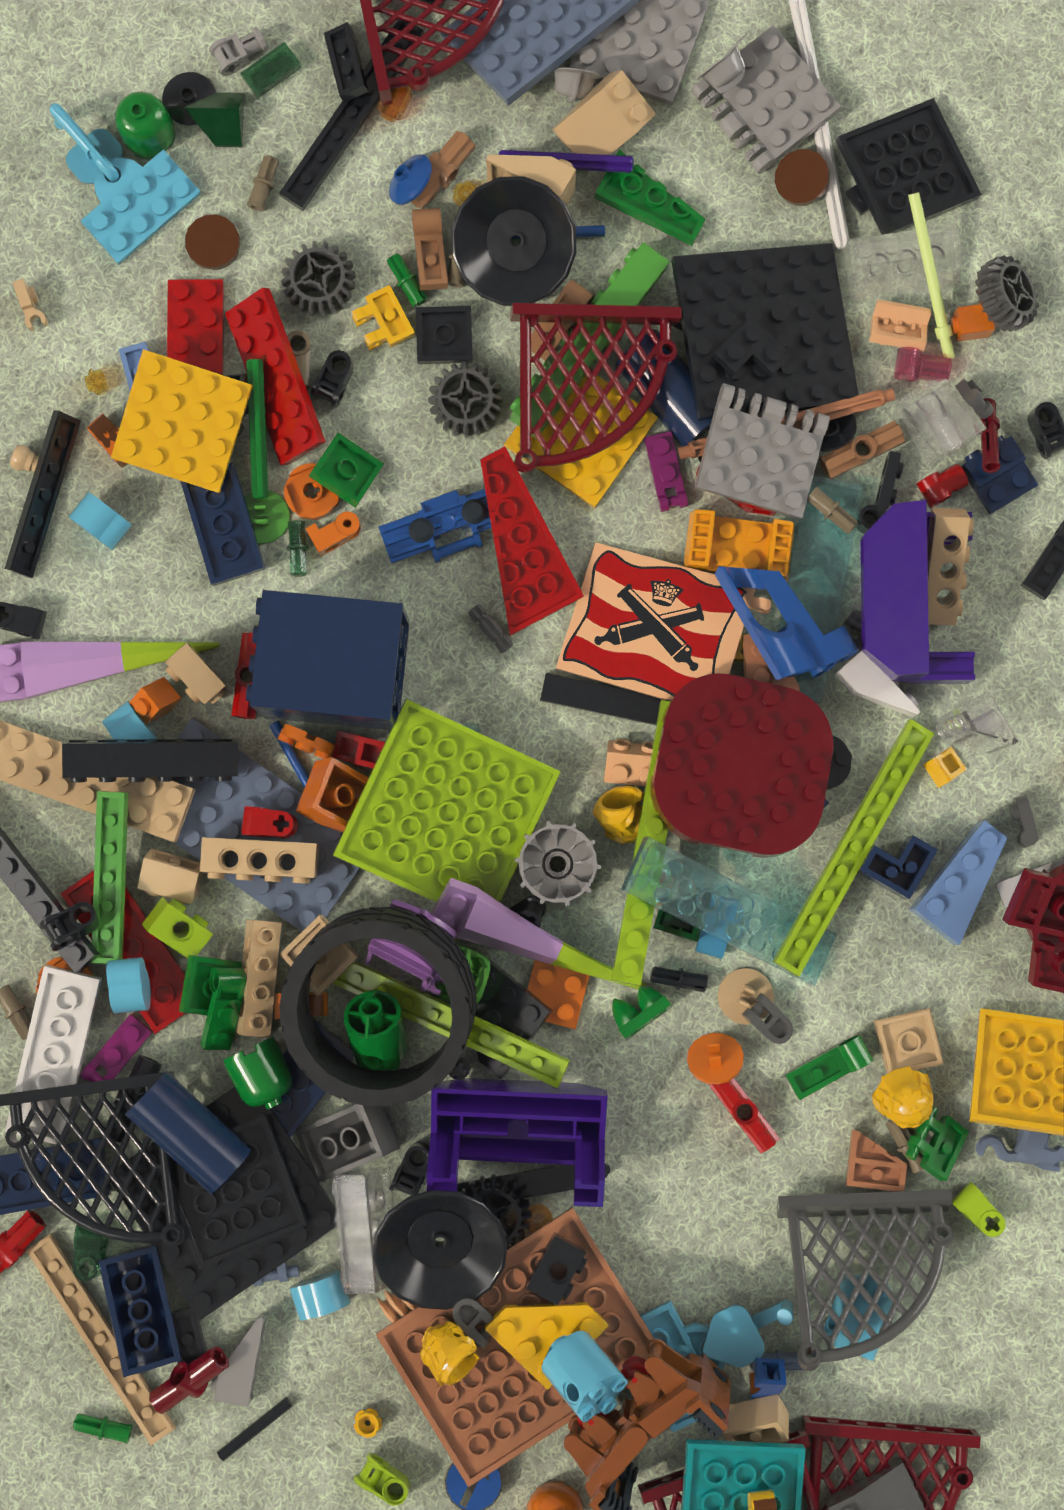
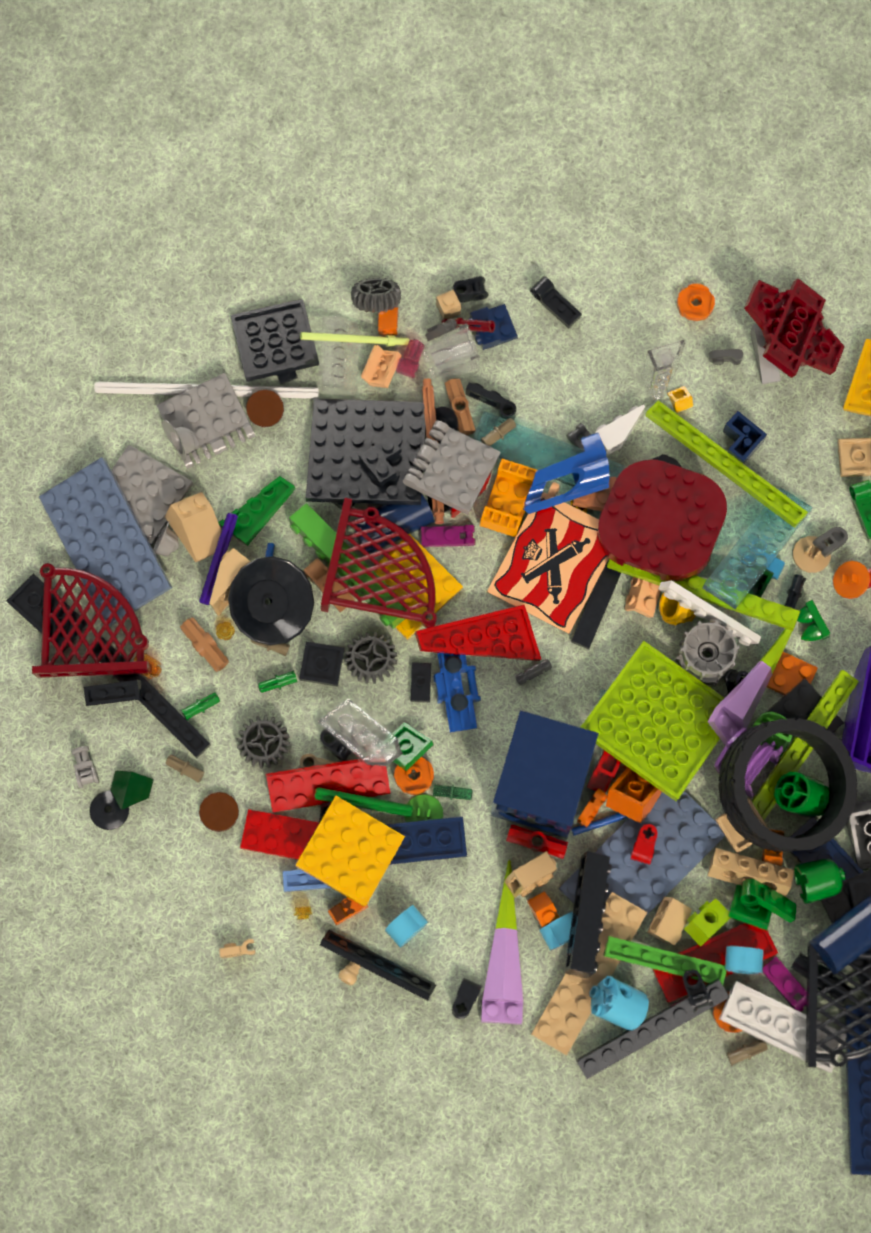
camera: 80 degrees left, 10 degrees down
(40, 823) = (619, 1003): none -> medium azure cylinder
(132, 197) = (177, 857): medium azure plate -> none
(144, 124) = (125, 842): green cylinder -> none
(215, 849) = (657, 883): tan brick -> none
(271, 70) = (104, 747): clear green plate -> none
(334, 534) = (445, 758): orange leg -> none
(341, 400) = (362, 734): none -> clear slope
(353, 184) = (200, 705): none -> green axle
(388, 315) = (301, 698): yellow plate -> none
(410, 179) = (213, 662): blue dish -> none
(429, 249) = (259, 662): medium nougat plate -> none
(445, 476) = (421, 682): none -> black plate
(615, 844) = (704, 610): none -> white plate
(897, 601) = (565, 397): dark purple wedge -> none
(939, 487) = (493, 363): red piece -> none
(945, 523) = (573, 383): tan brick -> none
(957, 887) = (759, 403): medium blue wedge -> none
(1016, 403) = (448, 305): none -> tan brick

